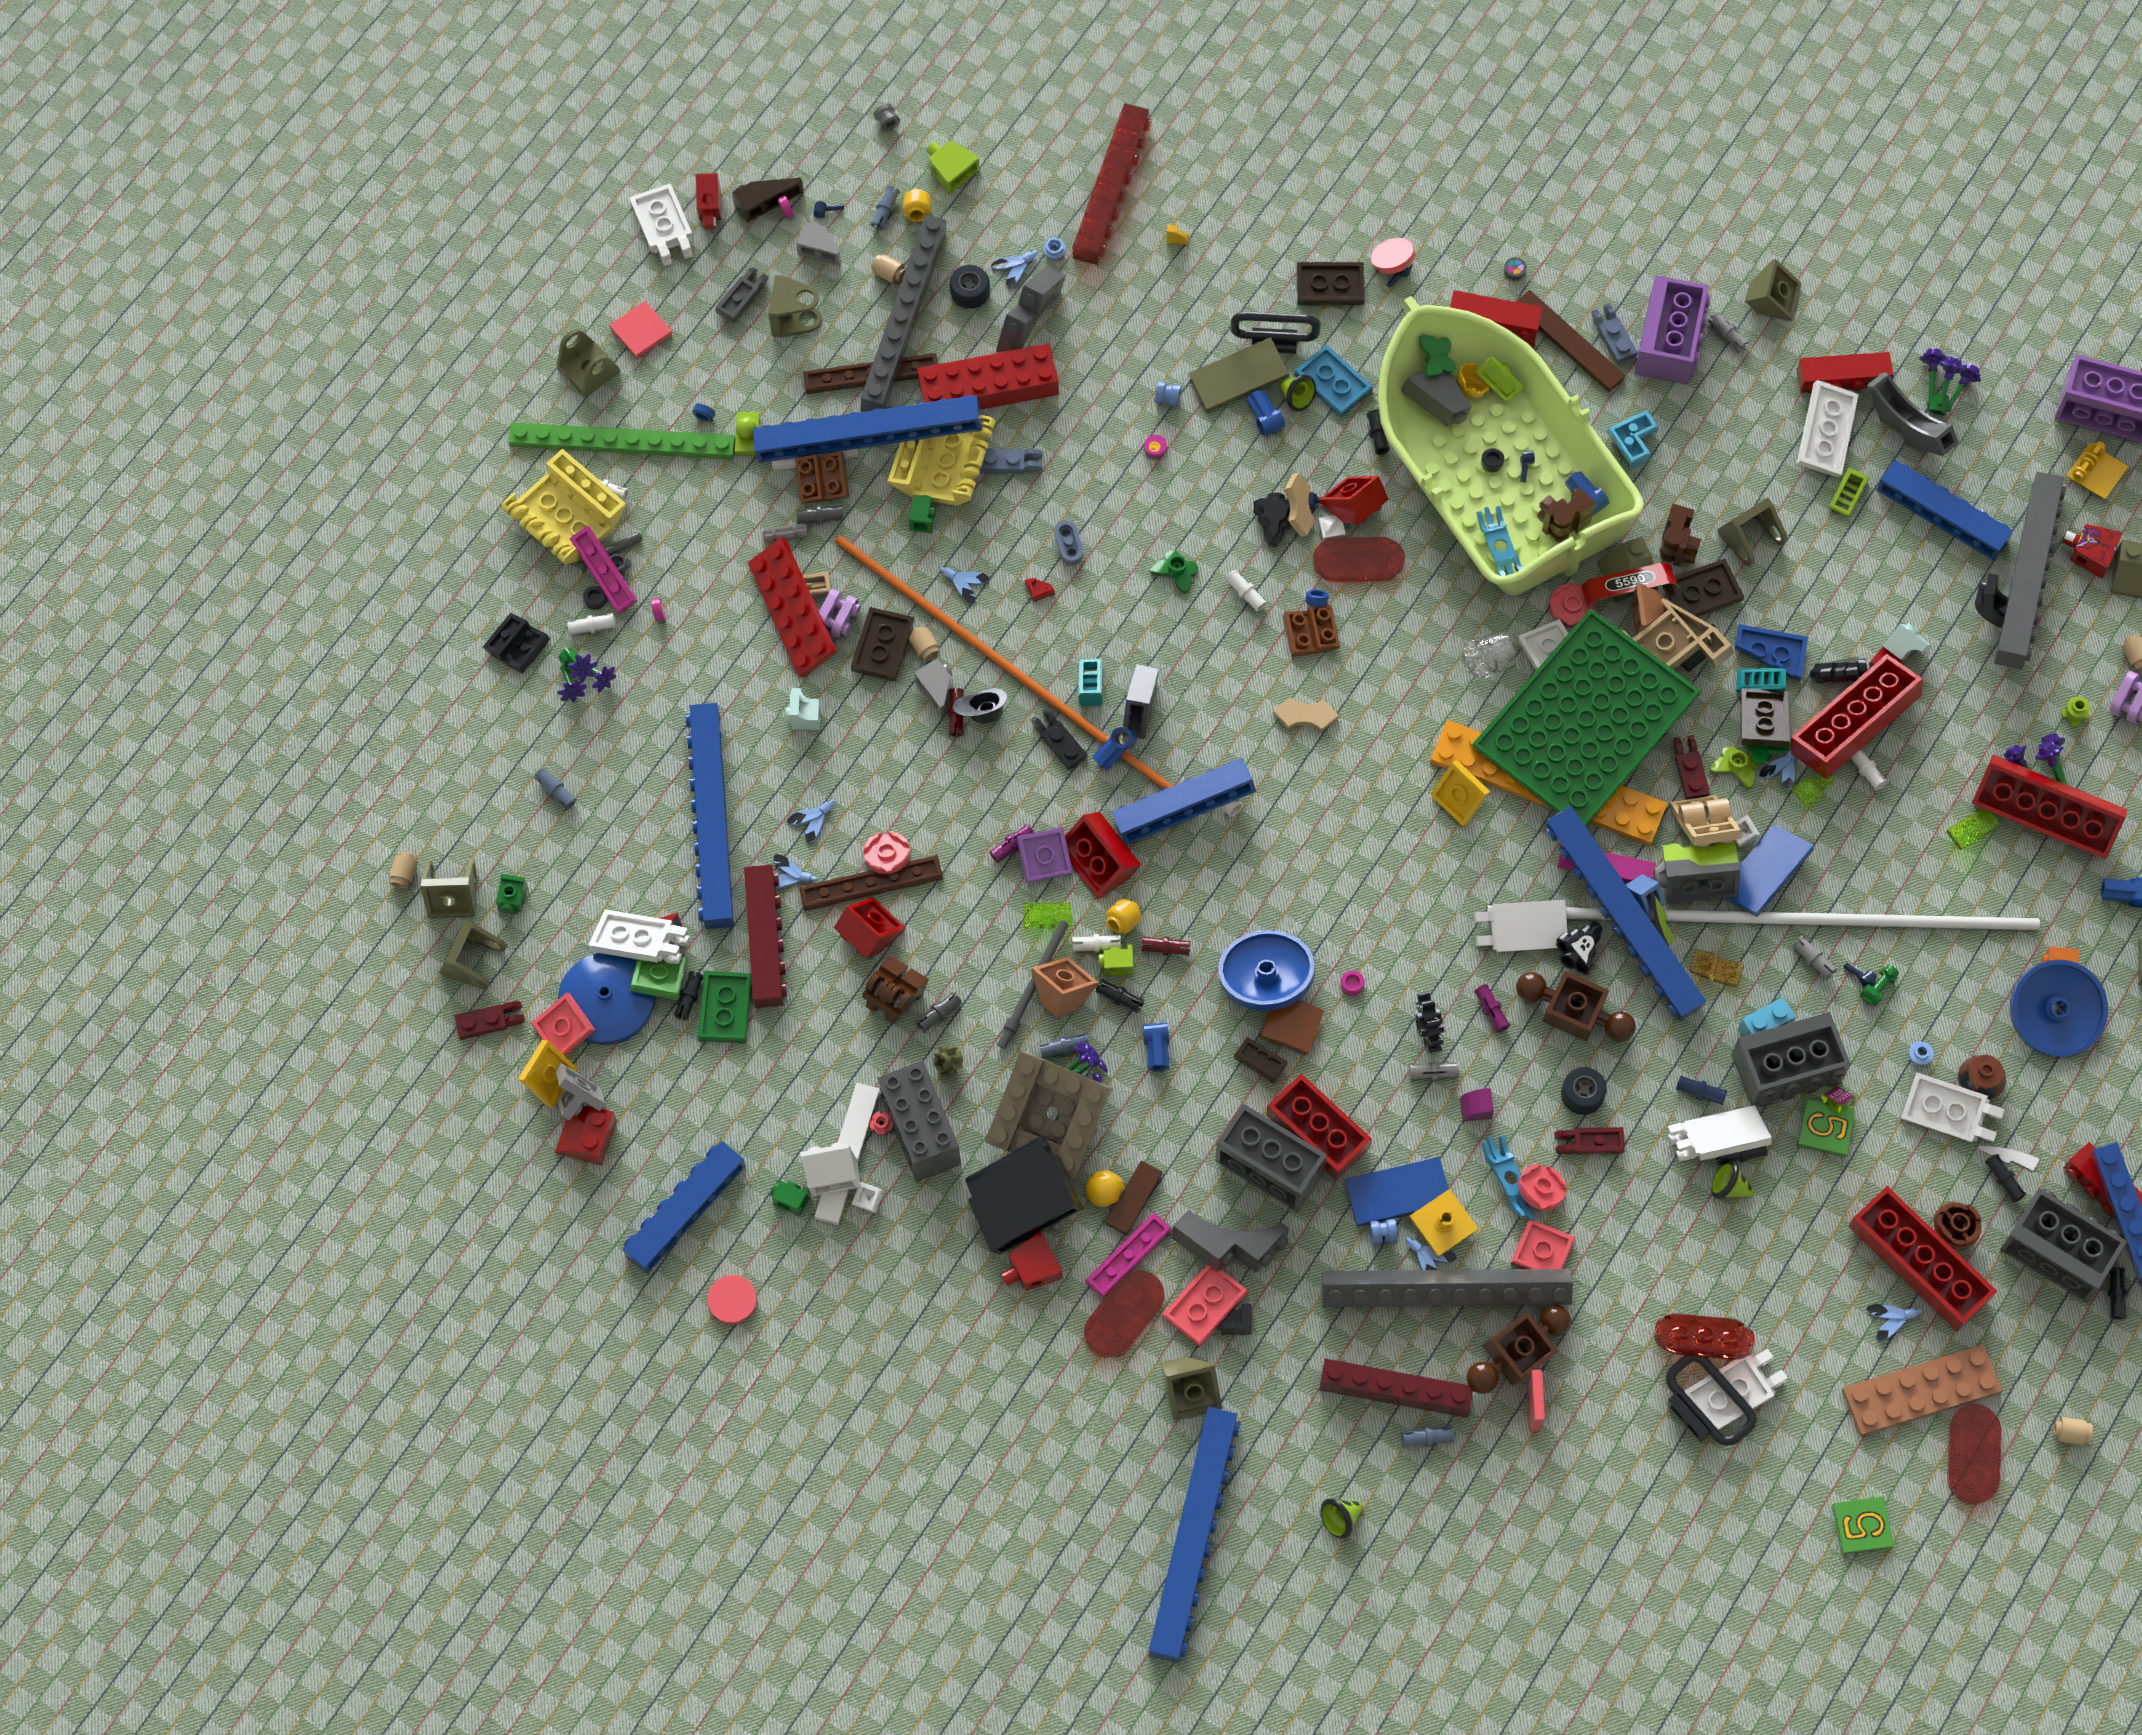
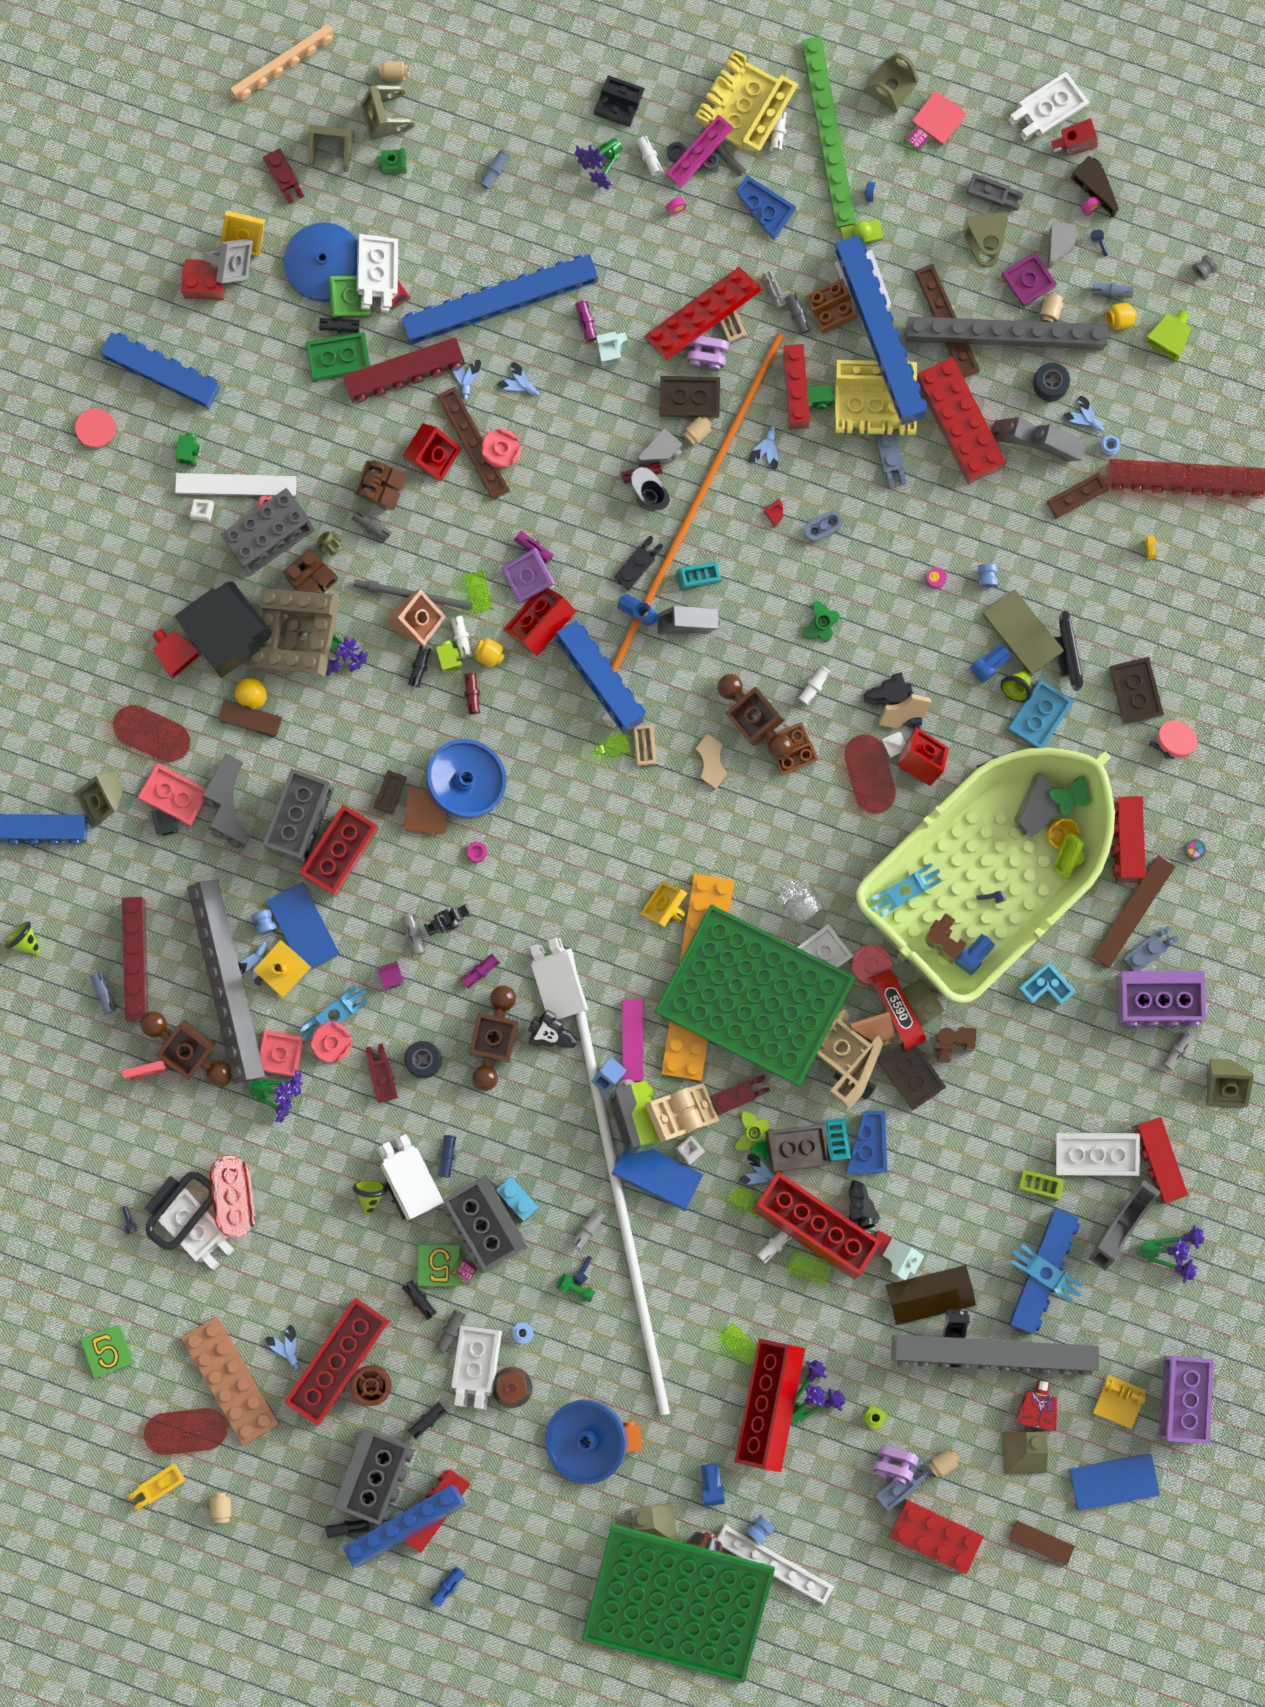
camera: 75 degrees right, 15 degrees up
(356, 997) = (288, 59): none -> light nougat plate
(564, 1024) = (289, 234): coral tile -> none
(657, 355) = (918, 139): none -> tile
(686, 519) = (766, 206): none -> blue wing
(761, 731) = (586, 321): none -> magenta pin
(830, 1169) = (211, 473): white slope -> none
(849, 283) = (1029, 279): none -> magenta plate
(903, 533) = (796, 386): none -> red brick
(980, 1090) = (310, 573): none -> reddish brown hips
(1062, 1046) = (365, 632): sand blue pin -> none
(1101, 293) = (1077, 495): none -> reddish brown tile
(1128, 1255) = (201, 726): dark pink tile -> none
(1156, 1039) = (387, 704): blue piece -> none
(1264, 807) = (616, 745): none -> clear neon green plate
(1271, 779) = (646, 762): none -> tan tile
(1274, 638) = (779, 745): none -> reddish brown brick
(1316, 598) = (821, 746): blue tile -> none
(1492, 460) = (990, 867): black tile -> none
(1583, 1277) = (262, 1089): none -> plant
(1625, 913) = (584, 1062): blue brick -> none
(1660, 917) = (591, 1092): sticker -> none
(1710, 1467) = (128, 1220): none -> dark blue hand
(1720, 970) = (560, 1149): clear yellow slope -> none
(1767, 517) = (987, 1097): olive hose -> none
(1863, 1156) = (419, 1300): none -> black pin
(1899, 741) = (809, 1268): none -> clear neon green plate
(1905, 1130) = (450, 1331): none -> dark grey pin
(1949, 627) = (931, 1294): none -> dark brown slope
(1955, 492) = (1057, 1279): none -> dark azure piece
(2012, 1155) = (451, 1421): white sticker -> none
(2036, 1500) = (158, 1486): none -> yellow hinge

